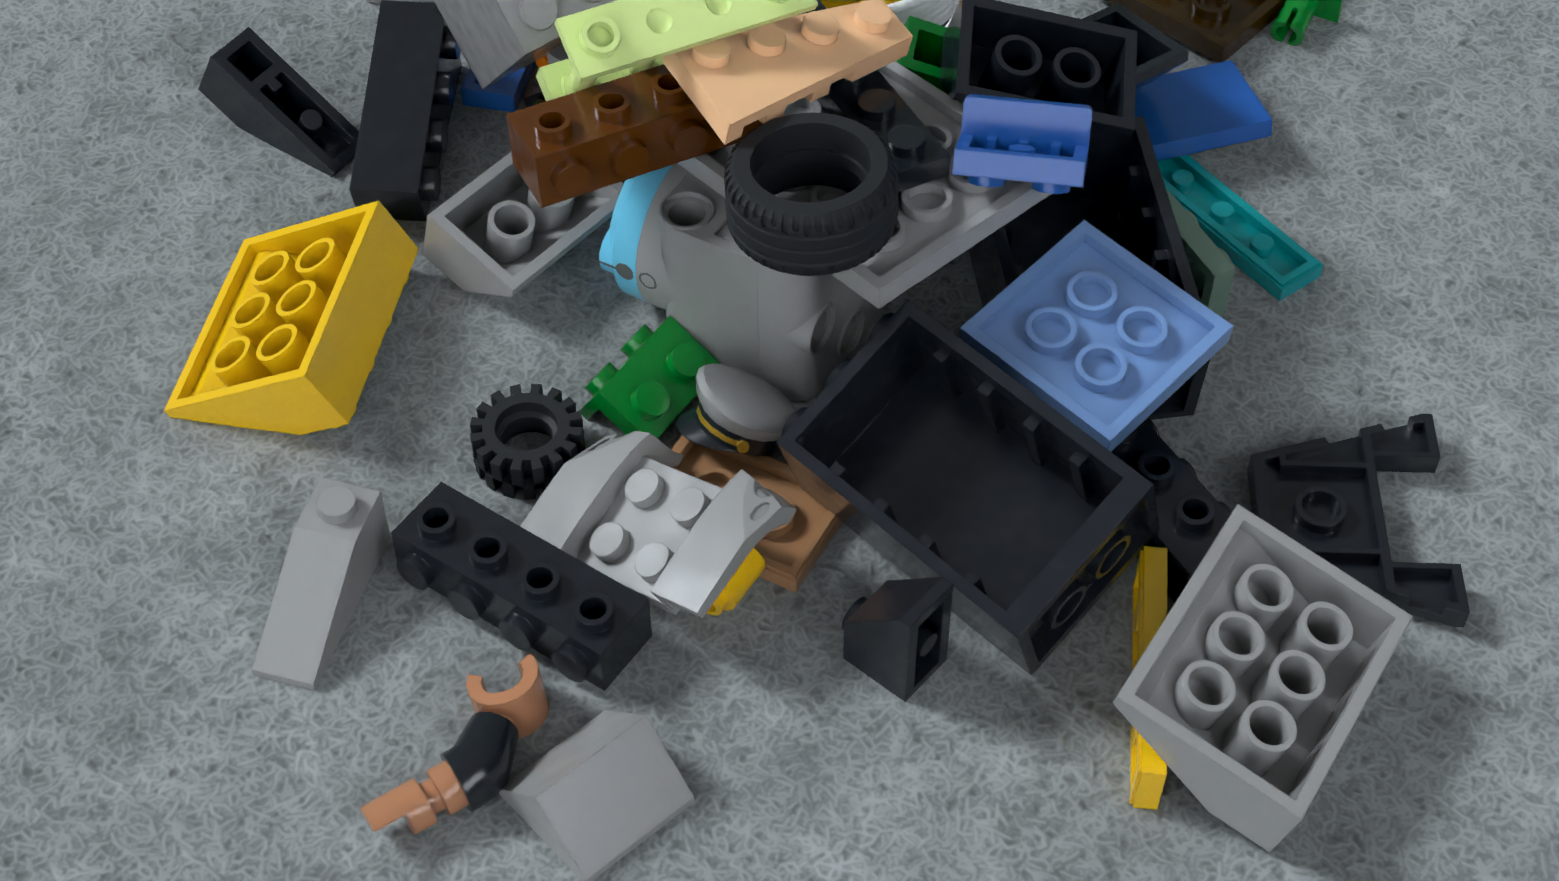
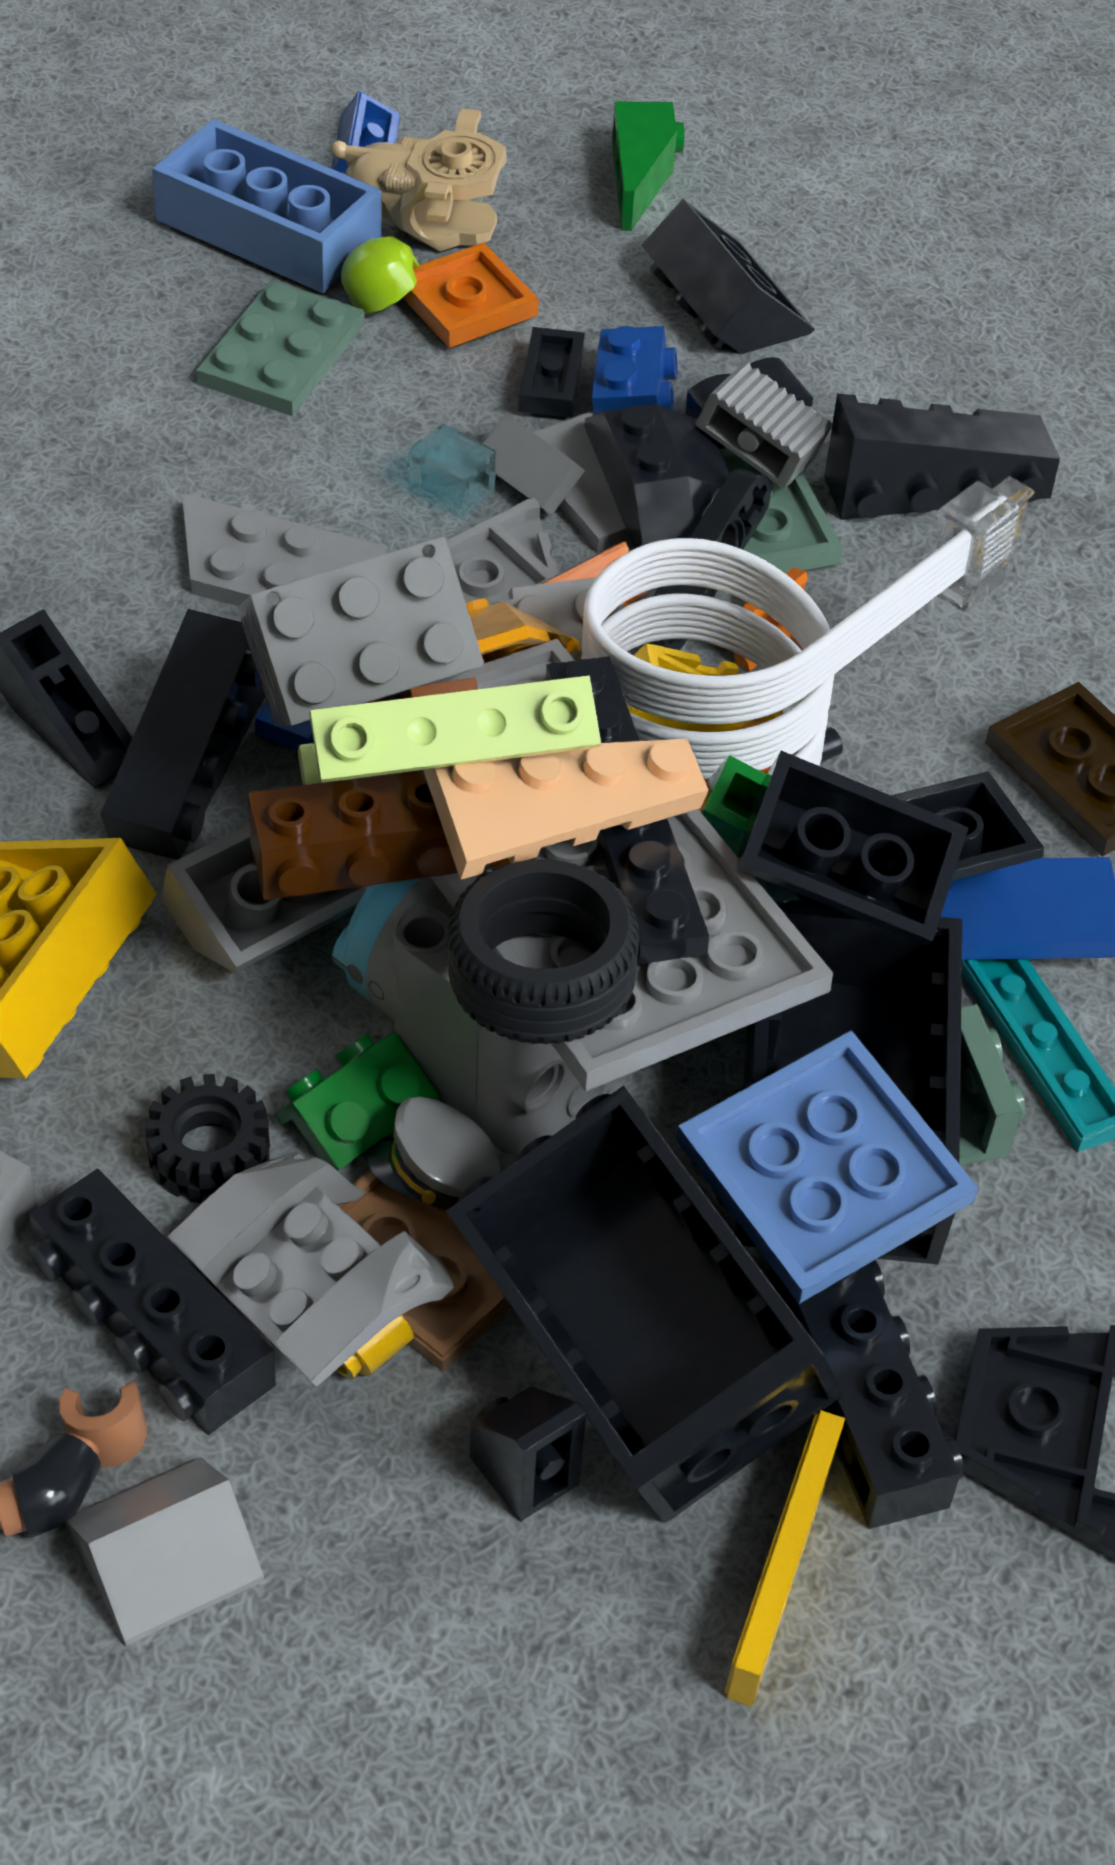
camera: 10 degrees right, 0 degrees up
(1023, 143) = (791, 940): blue bracket -> none
(1260, 676) = (894, 1586): light grey slope -> none

